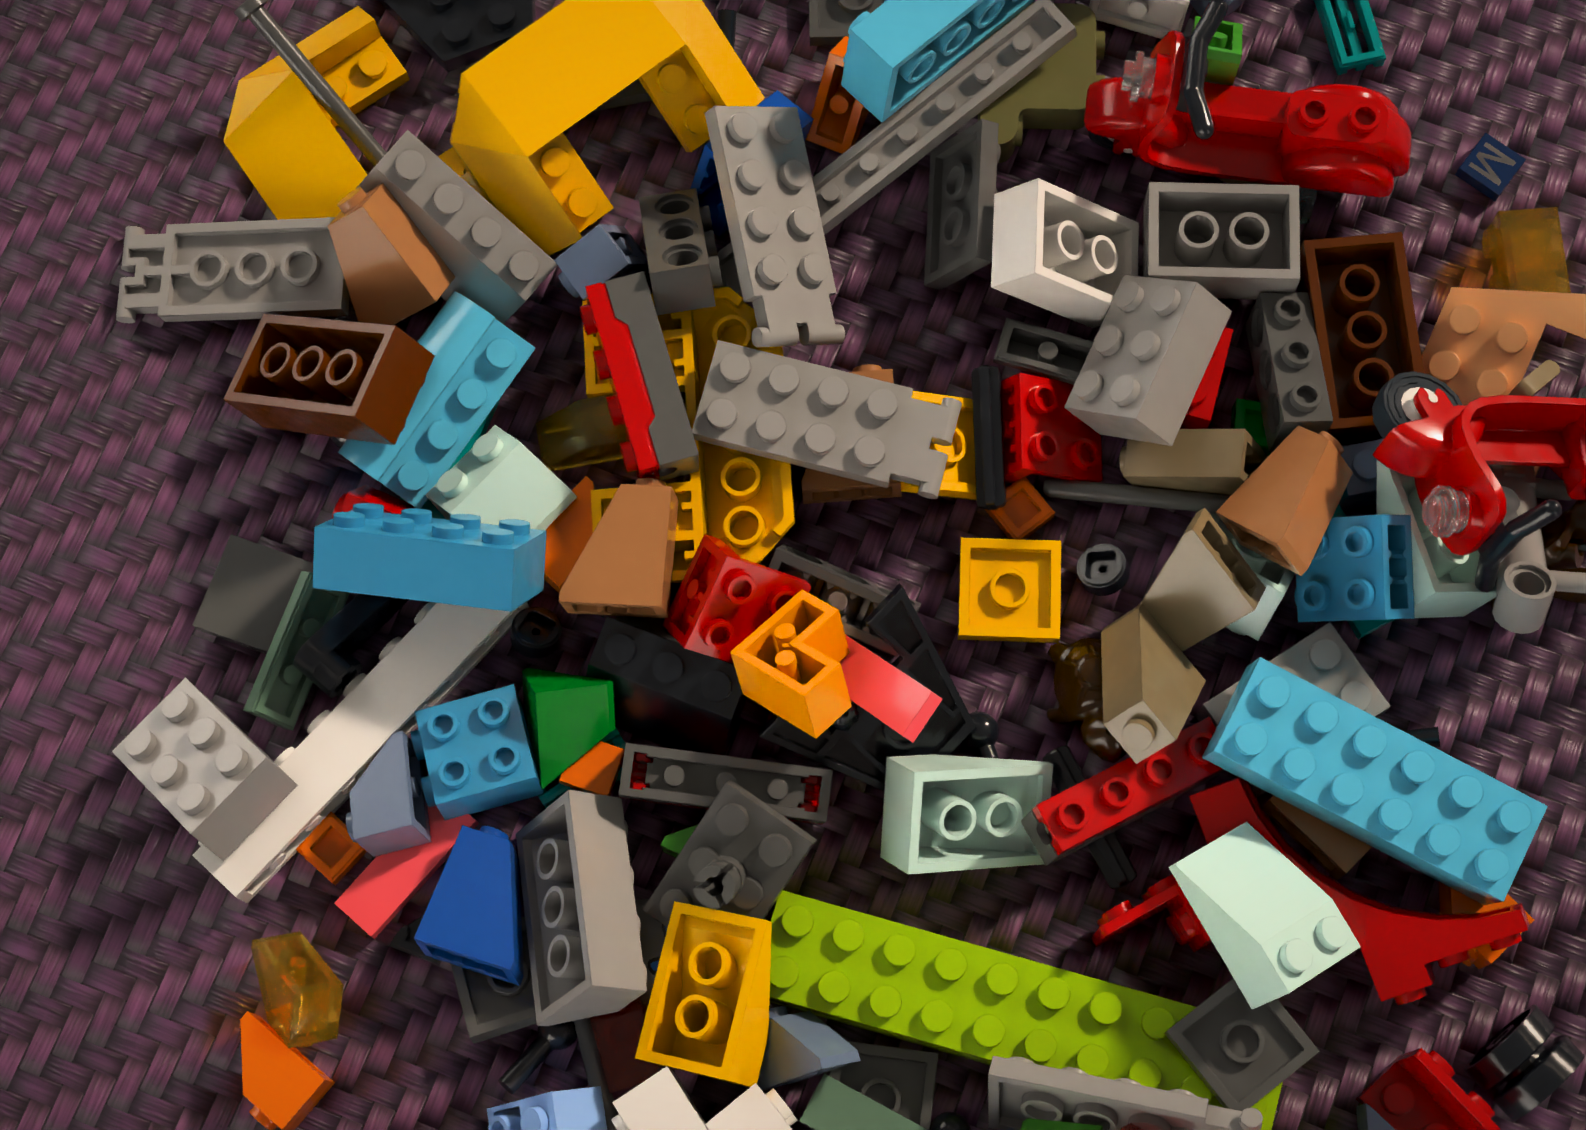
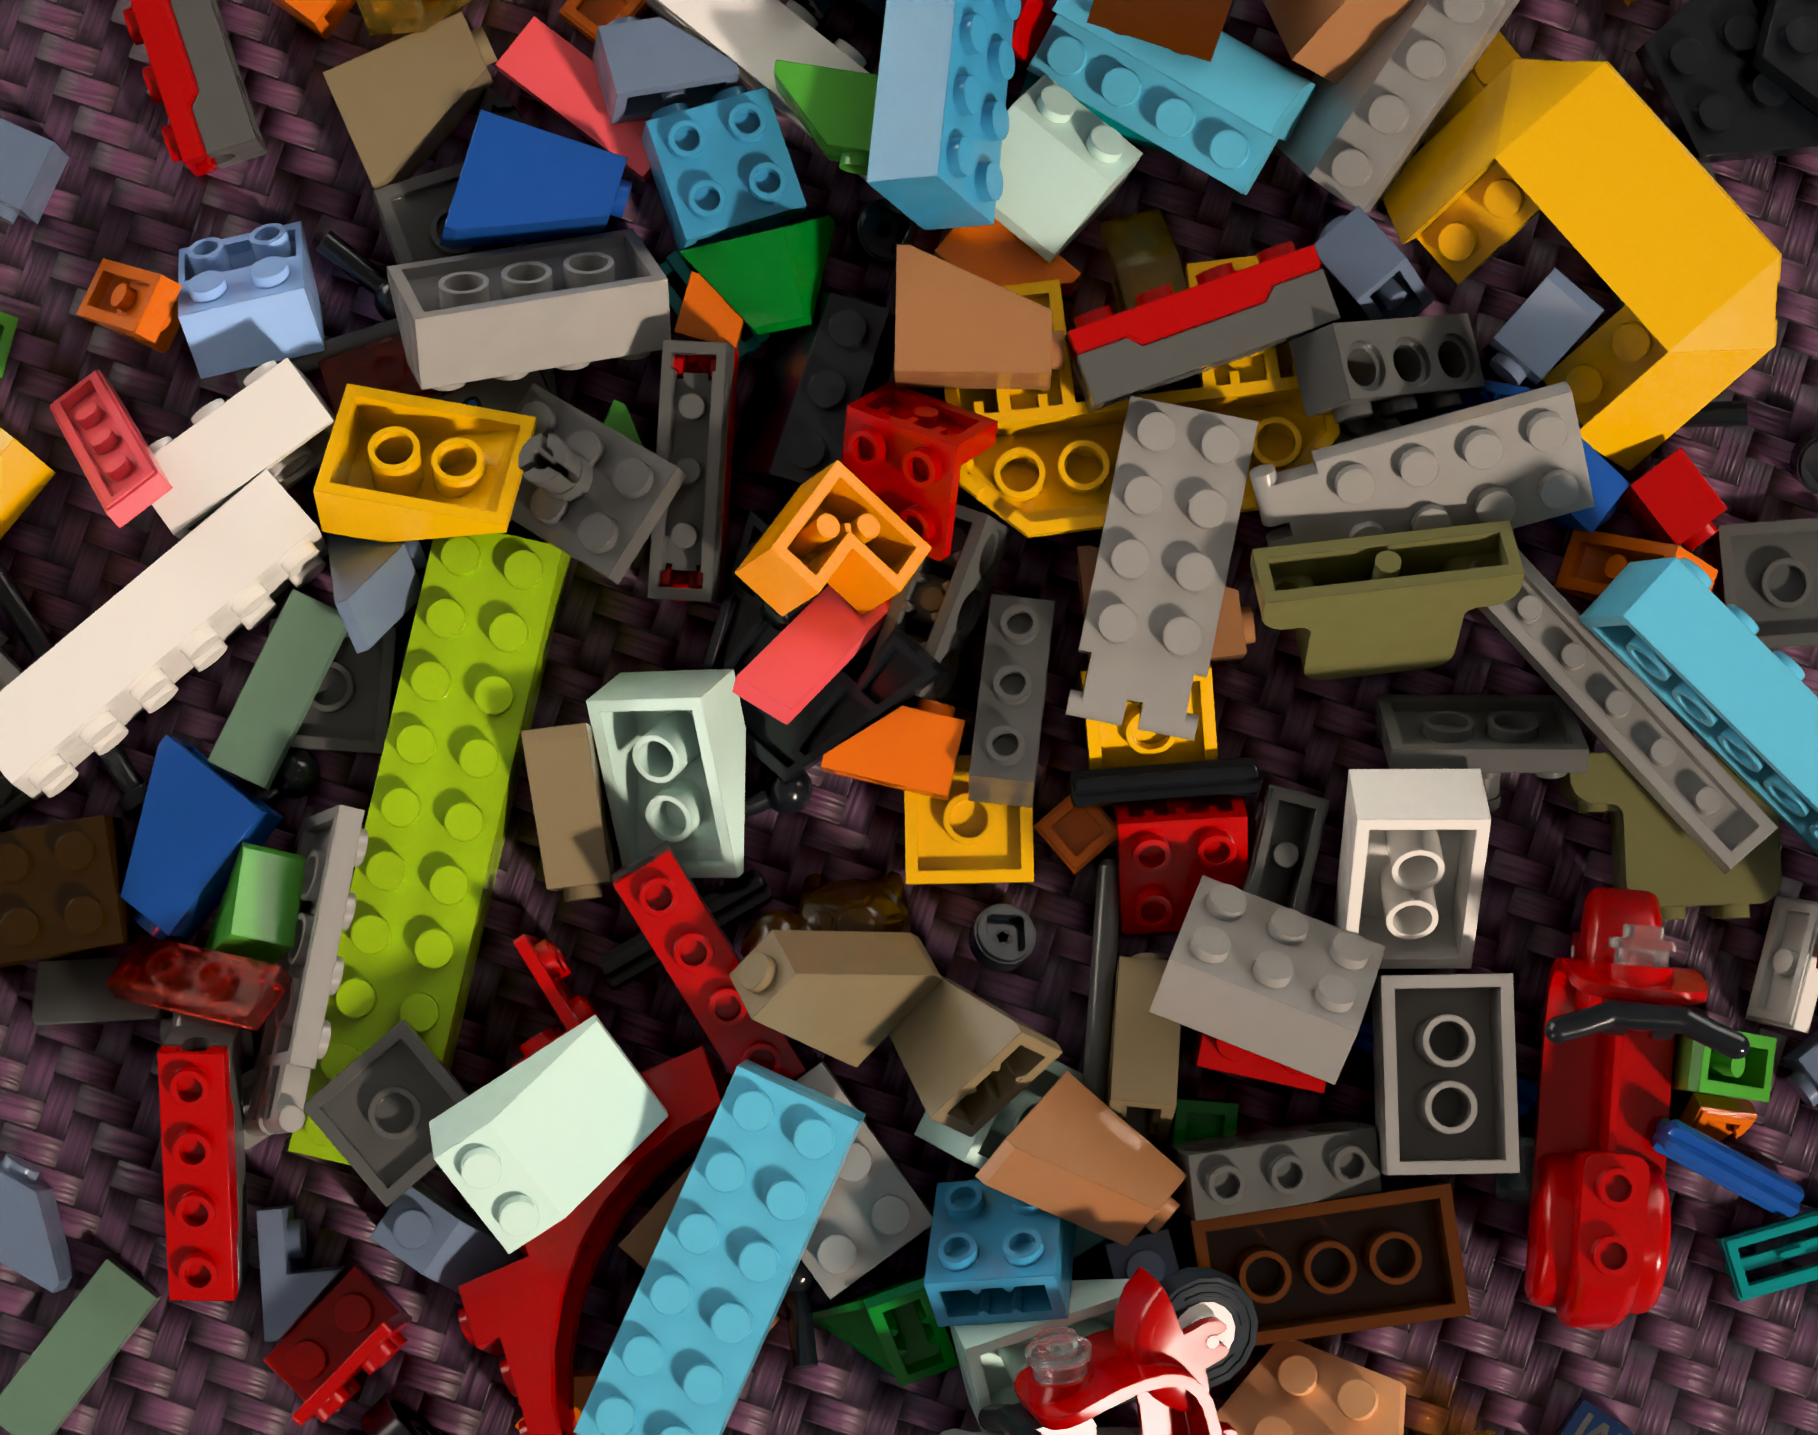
camera: 85 degrees right, 10 degrees up
(392, 1008) = (411, 95): none -> dark tan slope
(444, 647) = (833, 108): none -> bright green slope
(656, 144) = (1541, 331): none -> sand blue slope
(791, 63) = (1675, 503): none -> red brick
(856, 257) = (1386, 596): none -> olive brick
(921, 545) = (1011, 701): none -> dark grey brick
(957, 624) = (904, 750): none -> orange slope
(993, 897) = (569, 809): none -> dark tan slope
(1253, 69) = (1719, 1115): none -> orange tile
(1290, 54) = (1727, 1167): none -> blue axle
(1342, 1019) = (439, 1238): none -> sand blue slope
(1405, 666) = (893, 1329): none -> green slope

